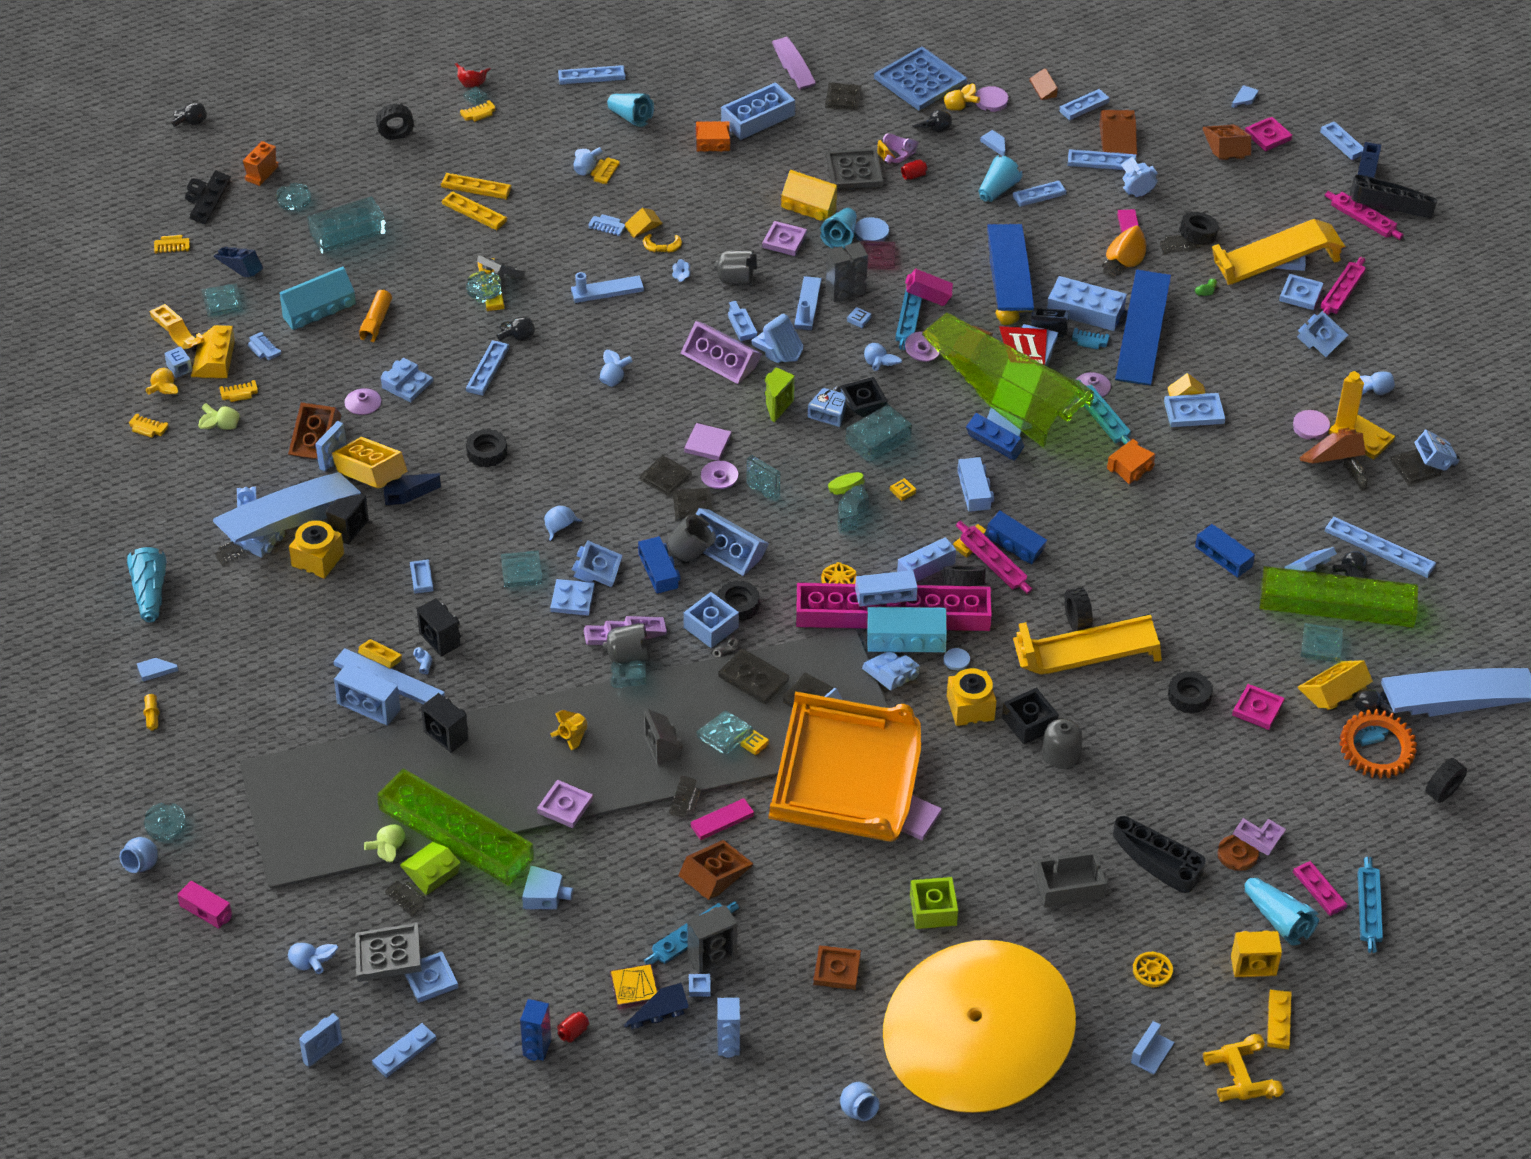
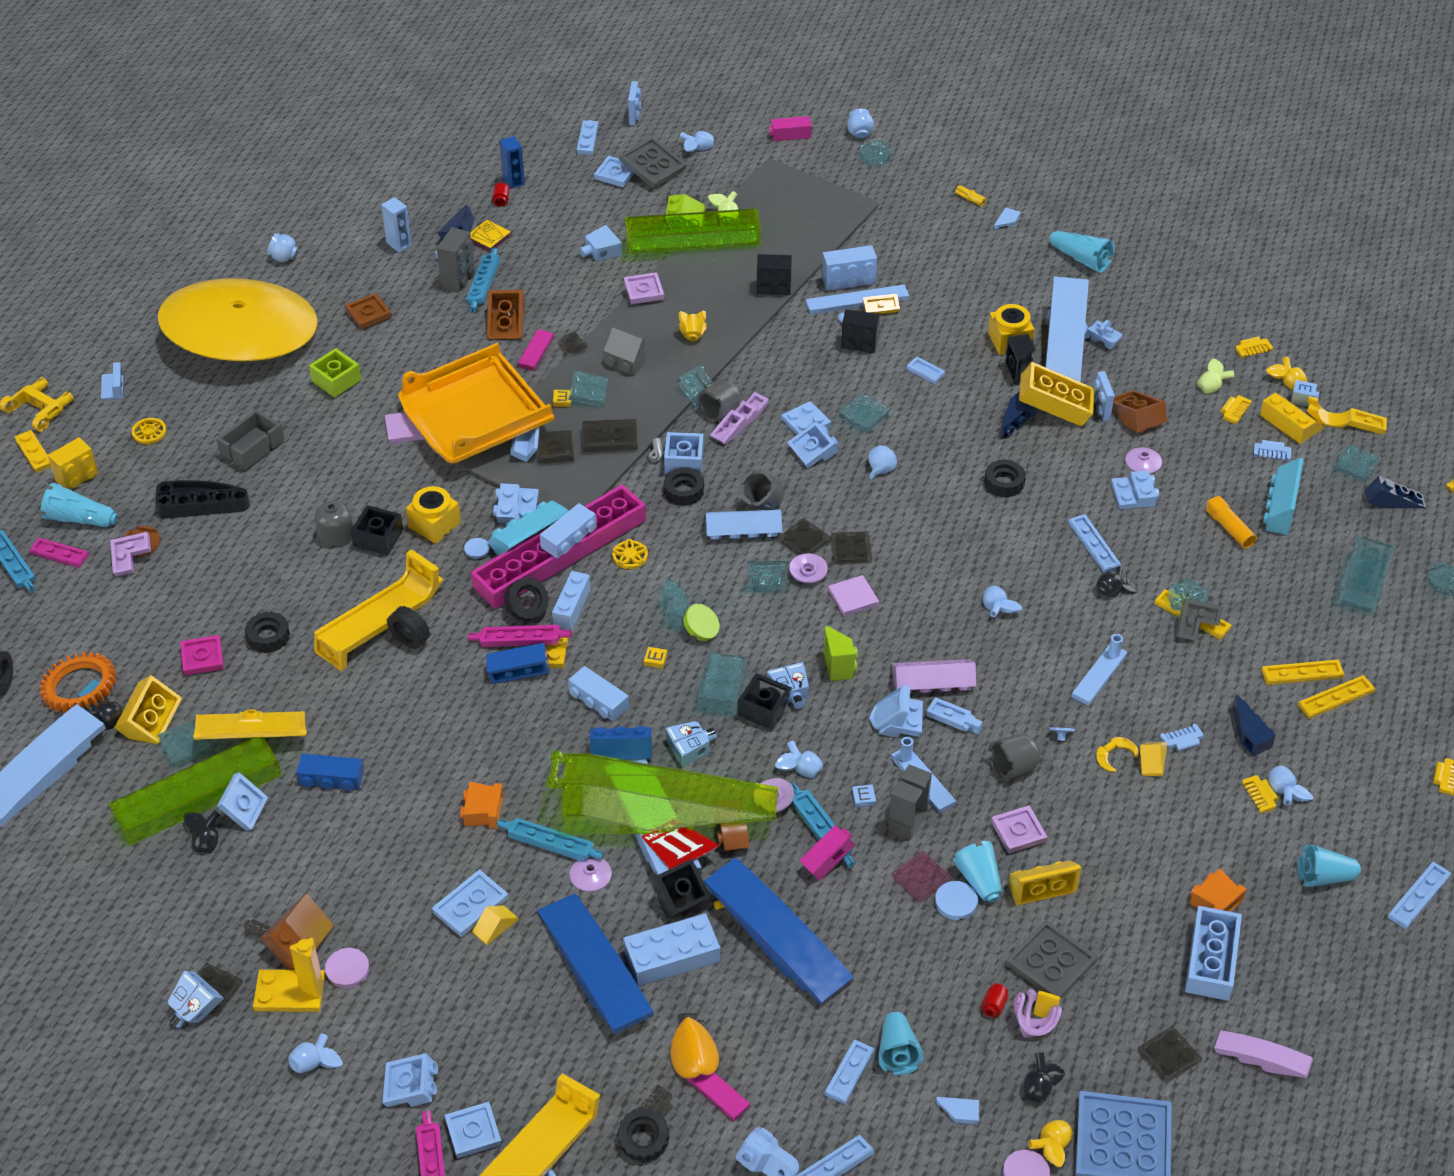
camera: 140 degrees right, 0 degrees up
(562, 196) = (1251, 729): none -> dark blue slope
(658, 564) = (786, 474): blue brick -> none
(942, 413) = (689, 741): none -> light blue torso
(1090, 342) = (637, 917): dark azure piece -> none
(1206, 289) = (575, 1058): bright green arm -> none
(1264, 612) = (249, 725): none -> yellow door
(1380, 547) = (192, 875): light blue tile -> none

